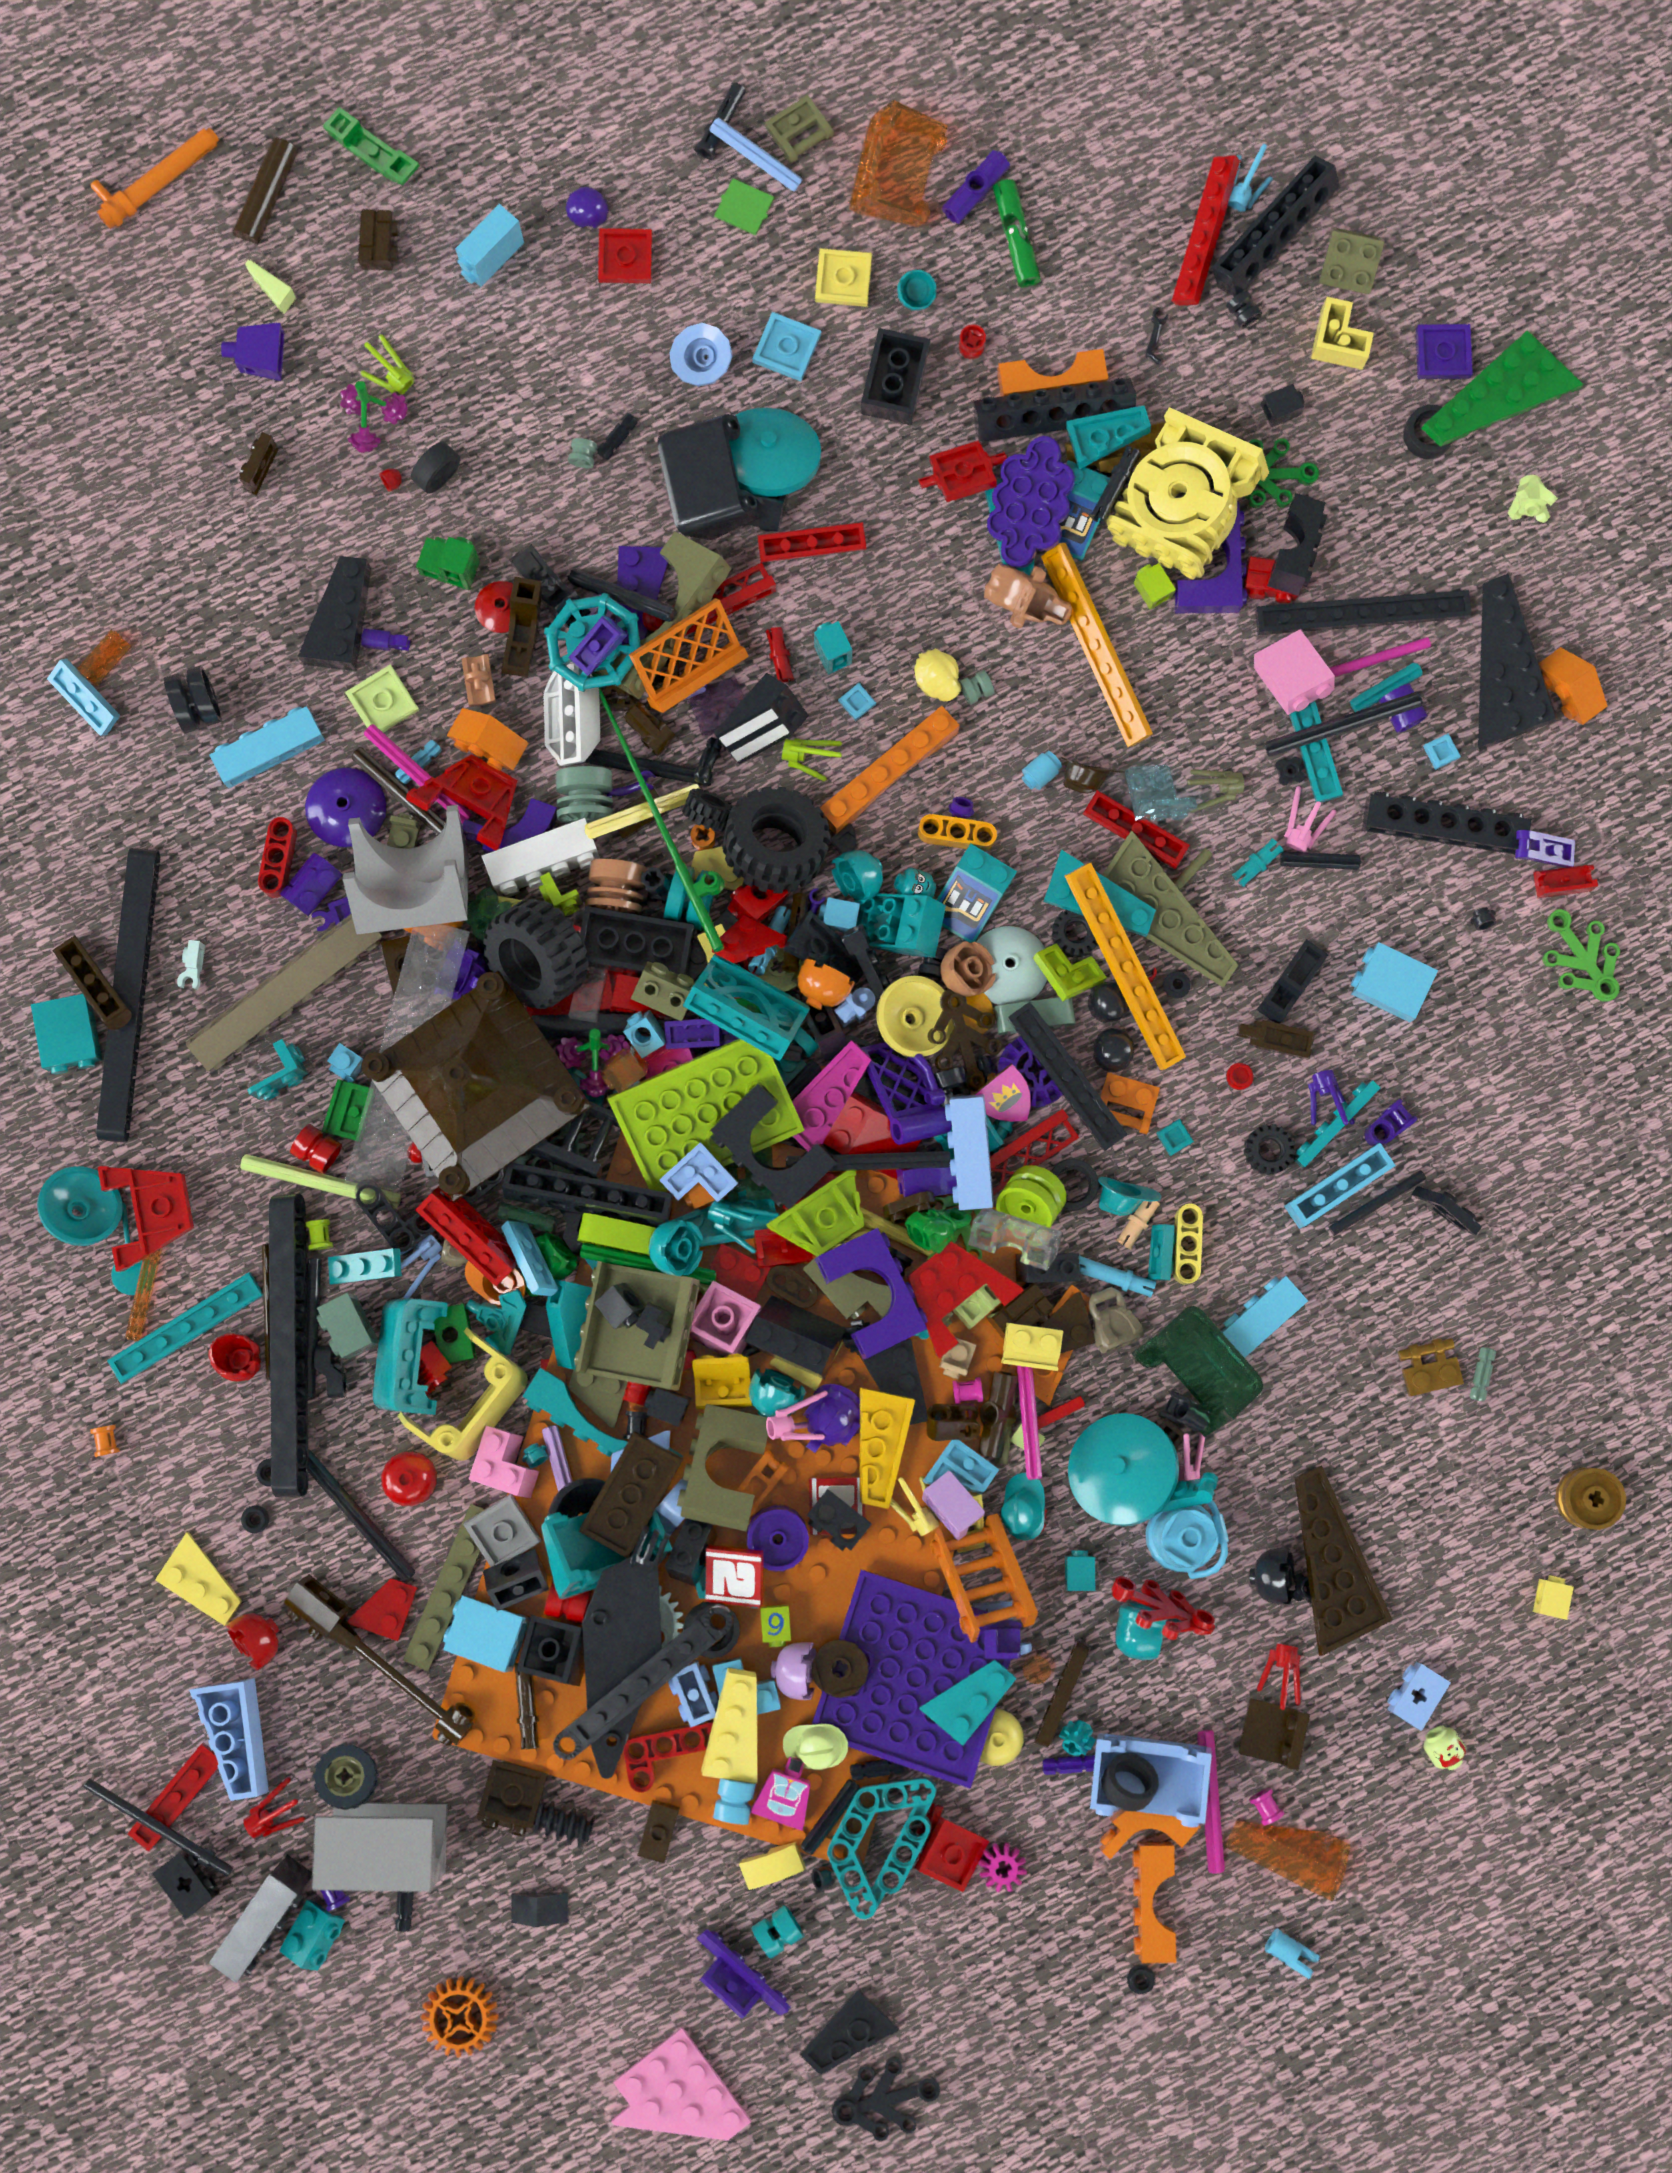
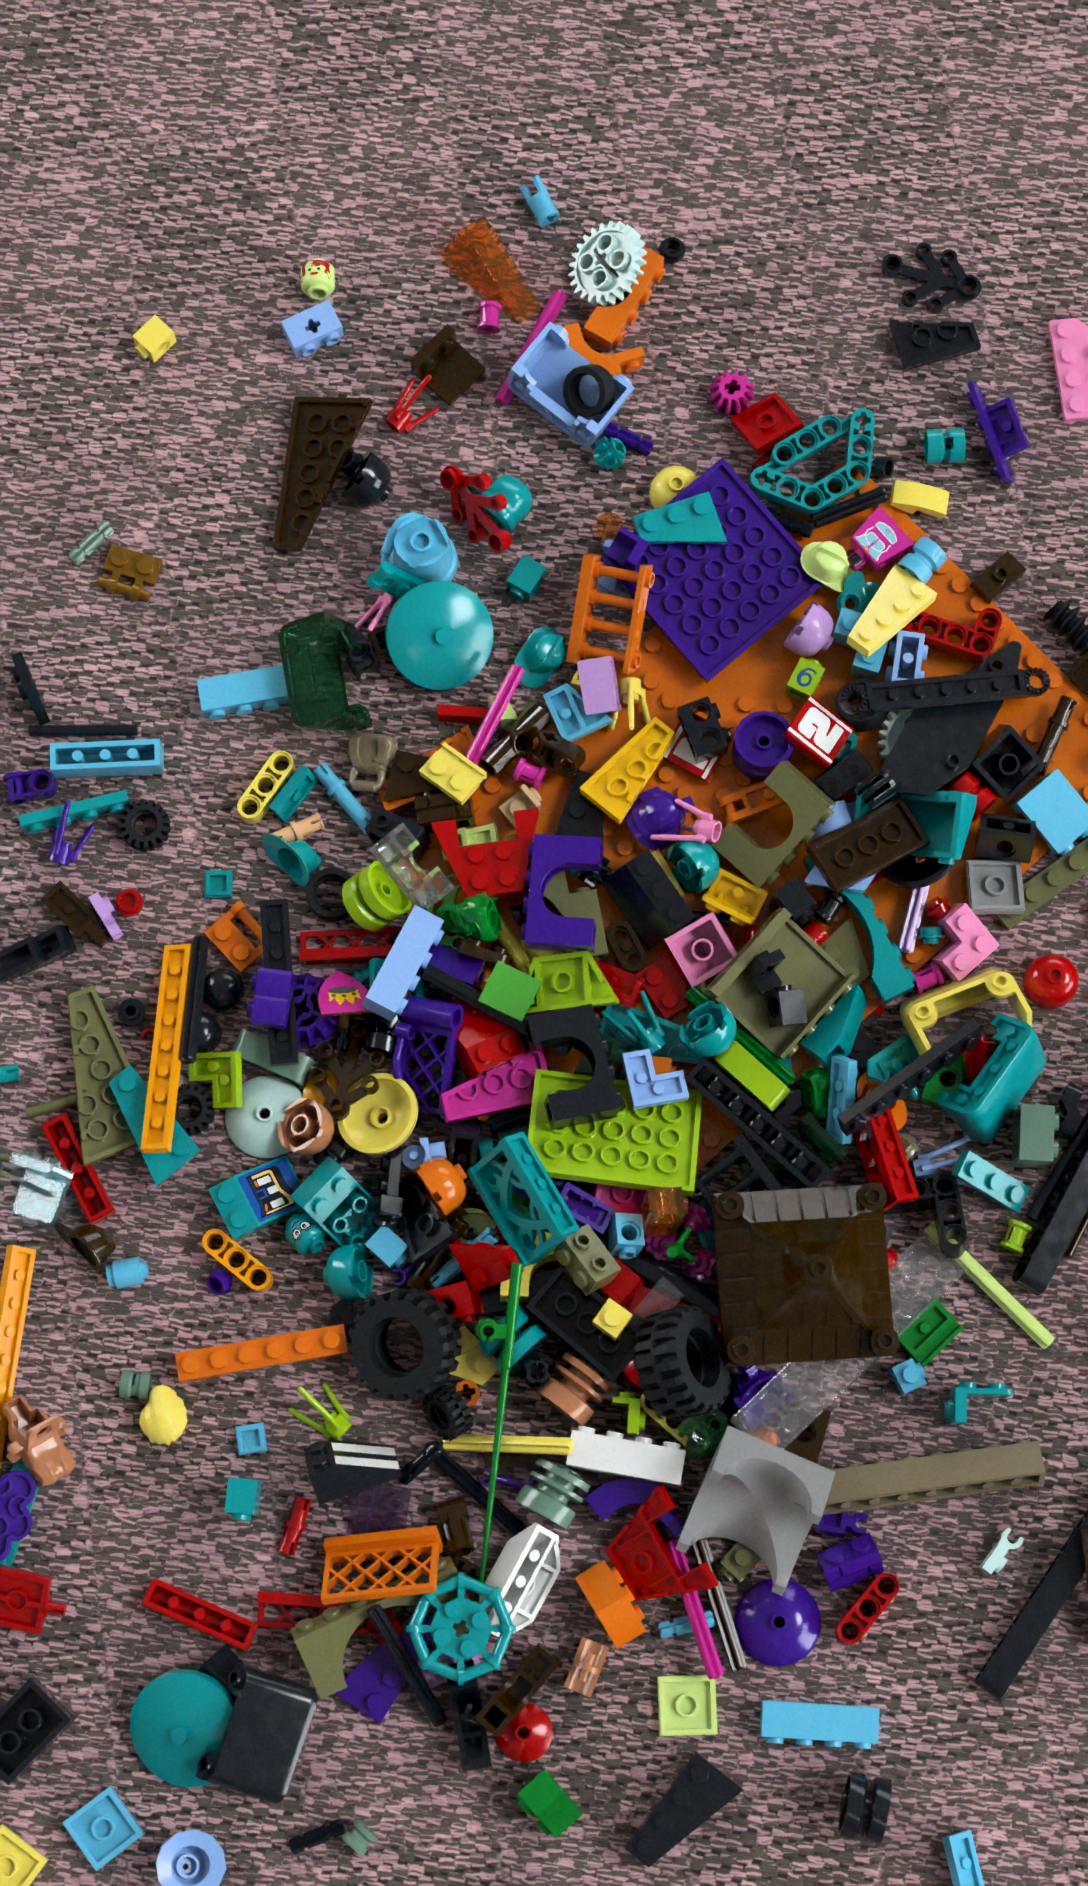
camera: 145 degrees left, 5 degrees down
(319, 1150) = (977, 1313): red wheel -> none
(384, 640) = (652, 1763): dark purple bar -> none
(472, 1316) = (905, 1080): none -> black plate
(518, 1415) = (927, 978): none -> dark pink bush
(542, 1482) = (937, 908): none -> red plate
(598, 645) = (459, 1618): dark purple slope -> none
(613, 951) = (612, 1319): none -> light yellow brick
(772, 1738) = (858, 592): none -> teal plate
(855, 1675) = (785, 603): dark brown plate -> none
(866, 1182) = (509, 991): none -> bright green piece
(1062, 1053) = (271, 999): none -> dark purple brick
(1062, 1694) = (600, 494): dark brown beam -> none
(1130, 1022) = (194, 999): none -> black axle
(1199, 1928) = (622, 252): none -> light aqua gear
(1256, 1055) = (104, 909): none -> lavender plate
(1607, 1498) = (71, 395): pearl gold wheel -> none

